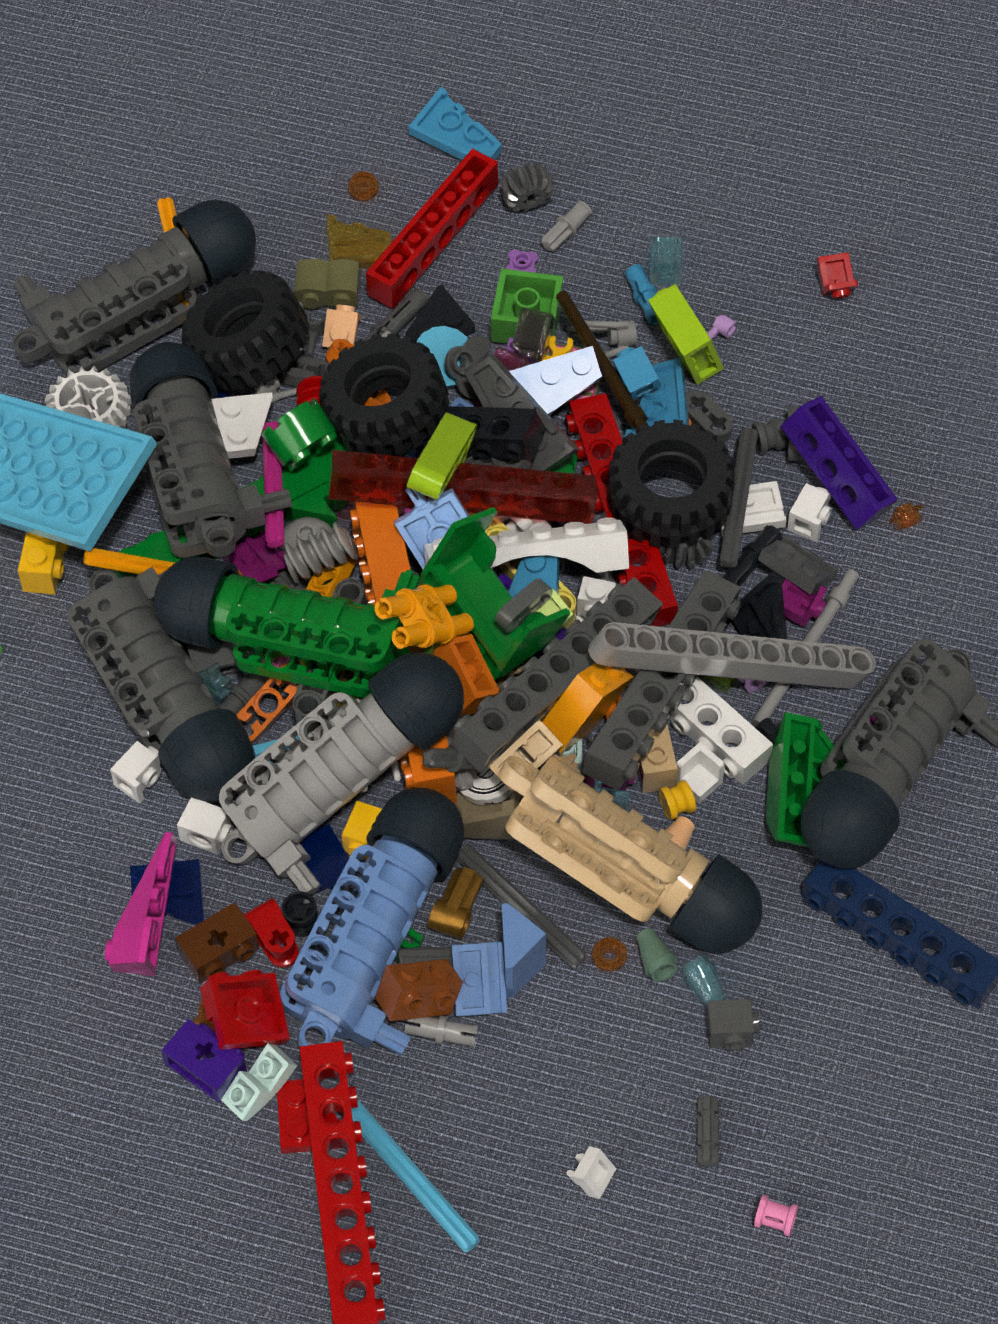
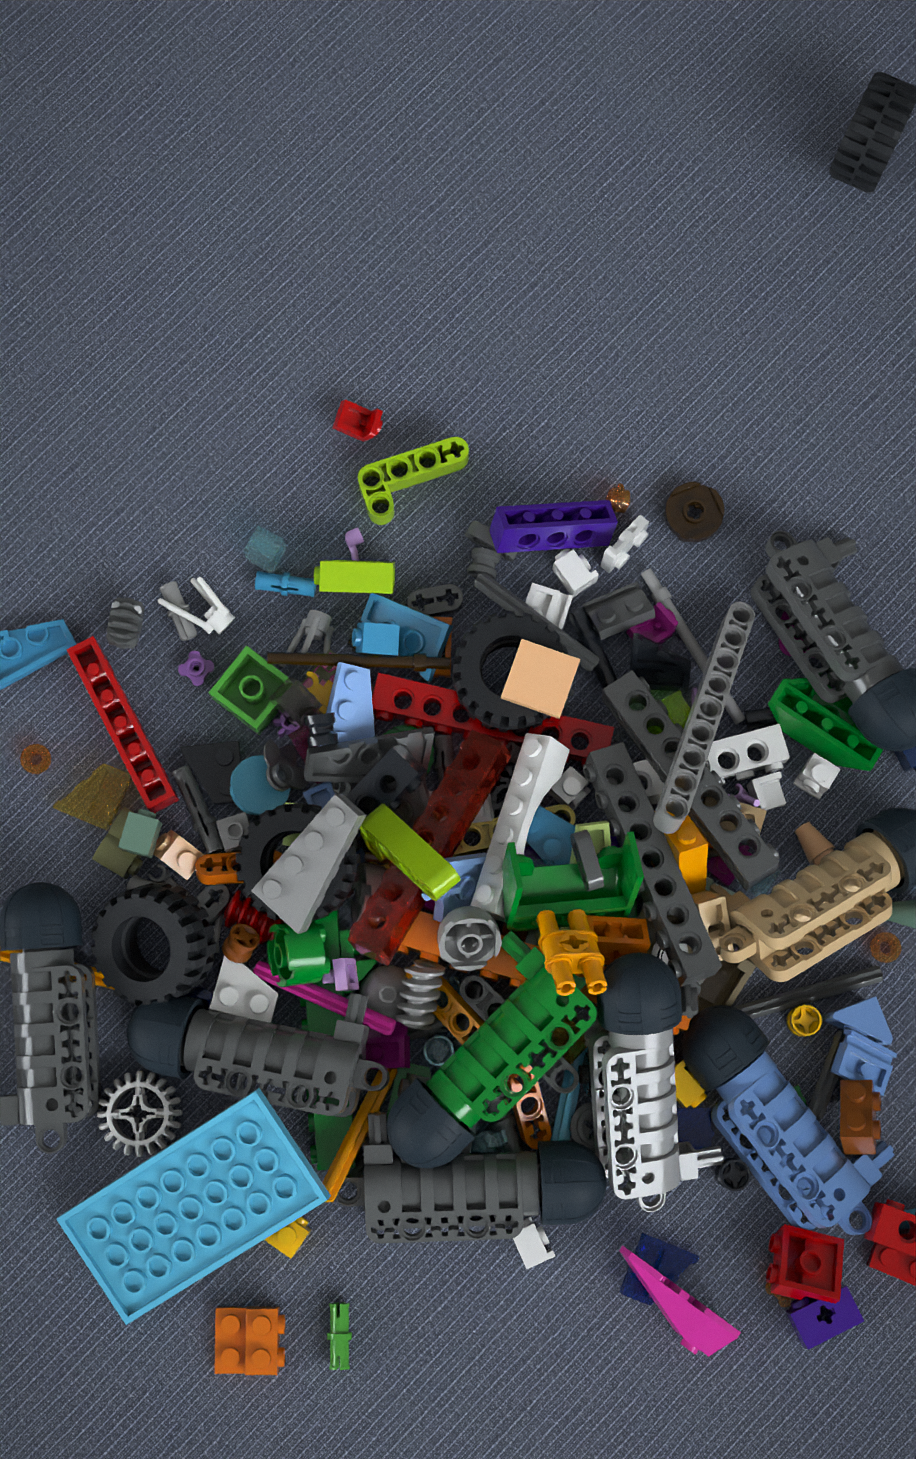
camera: 65 degrees left, 20 degrees up
(204, 825) = (613, 1213): white brick -> none
(229, 930) = (718, 1271): reddish brown brick -> none
(255, 1088) = (864, 1280): light aqua slope -> none
(272, 932) = (730, 1206): red piece -> none
(284, 397) = (240, 943): none -> dark orange wheel
(303, 486) = (343, 975): none -> lavender tile
(339, 276) = (140, 833): none -> sand green brick
(384, 379) = (305, 870): none -> light grey wedge
(390, 544) = (468, 938): none -> light grey cylinder
(442, 1030) = (892, 1107): light grey pin -> none
(453, 912) = (790, 1051): pearl gold piece -> none
(489, 901) = (808, 1017): none -> yellow wheel
(518, 354) = (321, 729): none -> black wheel
(579, 253) = (217, 616): none -> white plant
(674, 491) = (540, 678): none -> light nougat tile
(677, 799) = (781, 822): yellow wheel -> none
(680, 751) = (744, 797): none -> lavender hand
(744, 809) = (816, 776): none -> white brick
(816, 334) = (415, 473): none -> lime beam
(865, 536) = (633, 535): none -> white wing
(940, 603) = (699, 496): none -> dark brown plate

